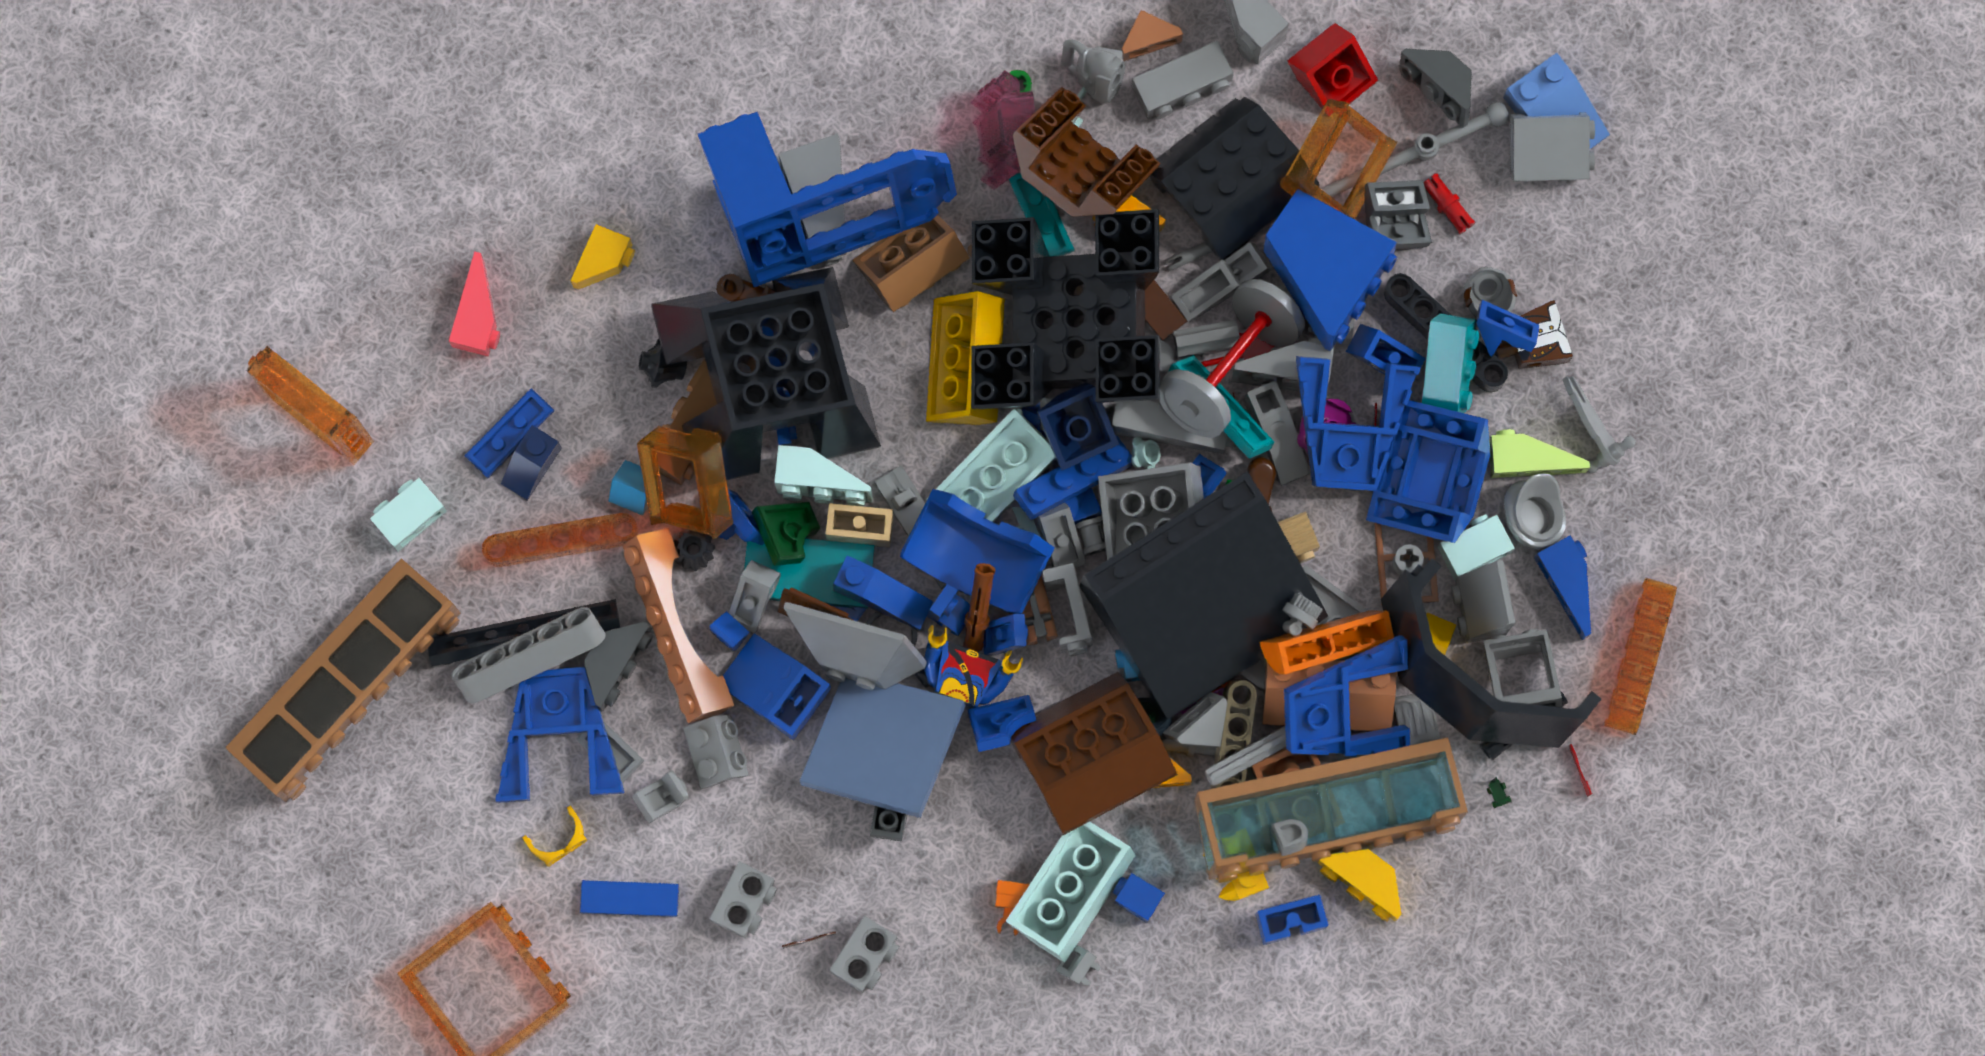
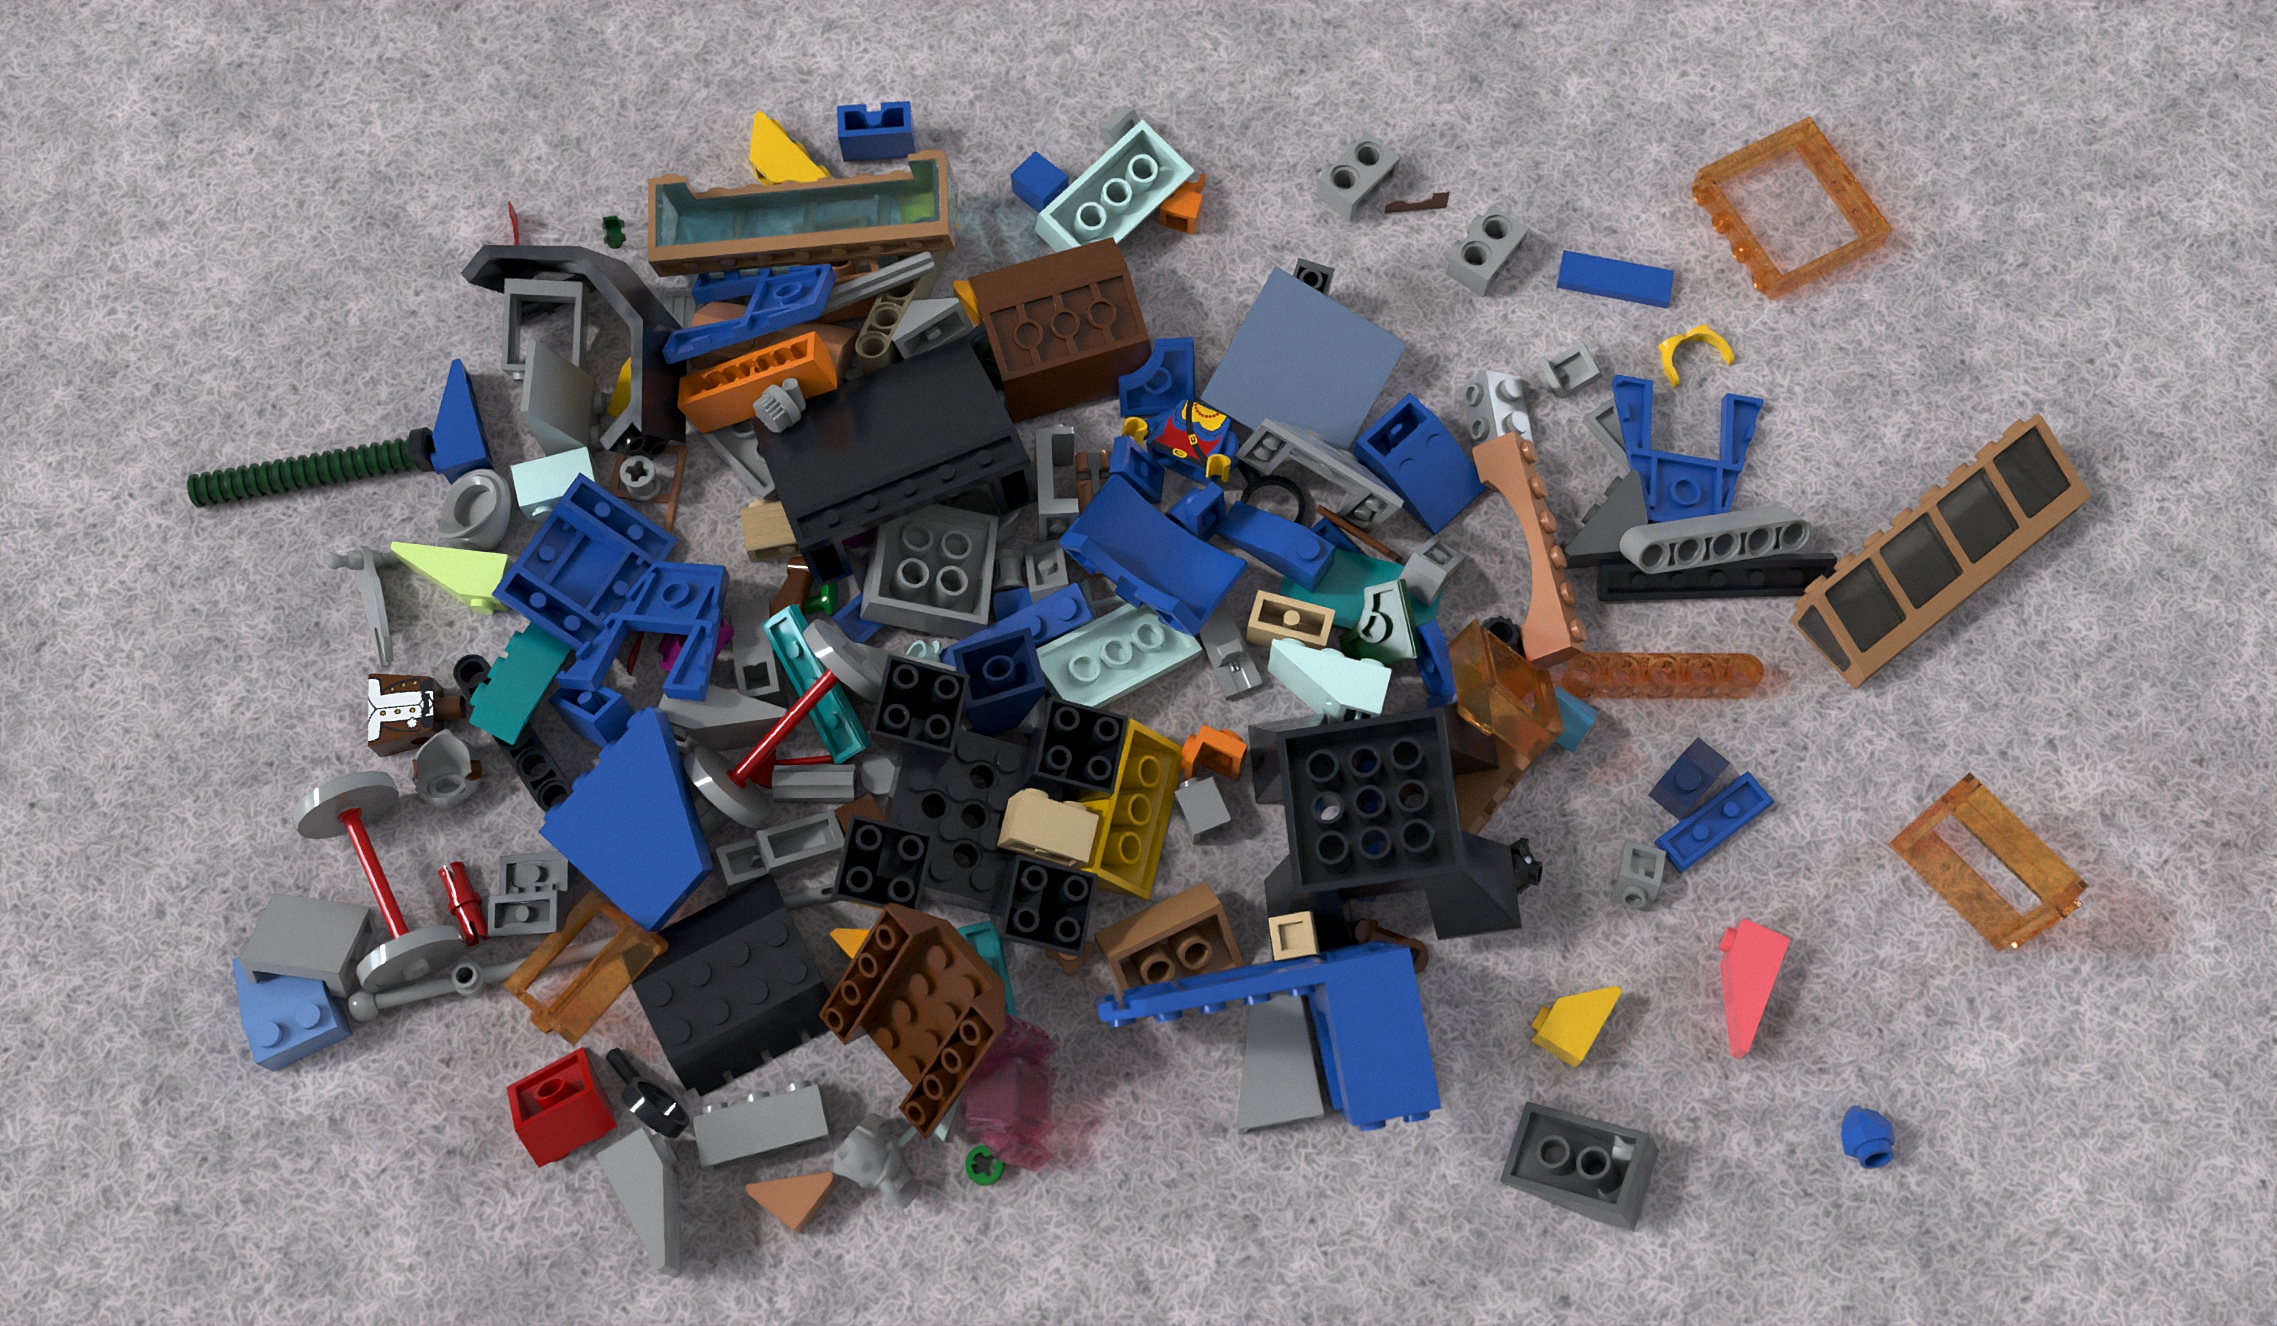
camera: 170 degrees left, 10 degrees down
(383, 212) = (1867, 1137): none -> blue rock
(407, 513) = (1851, 738): light aqua brick -> none
(564, 378) = (1638, 876): none -> light grey bracket
(588, 156) = (1581, 1164): none -> dark grey slope
(729, 631) = (1467, 535): blue slope -> none
(819, 261) = (1293, 936): none -> tan tile
(900, 409) = (1215, 750): none -> orange bracket
(905, 369) = (1202, 809): none -> light grey brick
(977, 618) = (1162, 498): dark orange pin -> none
(1015, 312) = (1048, 829): none -> tan brick
(1265, 91) = (647, 1099): none -> black piece
(1290, 836) = (855, 196): light grey tile -> none
(1441, 80) = (419, 1058): dark grey slope -> none
(1468, 145) = (345, 808): none -> light grey piece
(1499, 324) = (434, 710): blue slope -> none
(1596, 561) = (420, 447): none -> black tile
(1641, 656) = (403, 340): clear orange beam -> none
(1685, 523) = (301, 472): none -> dark green piece

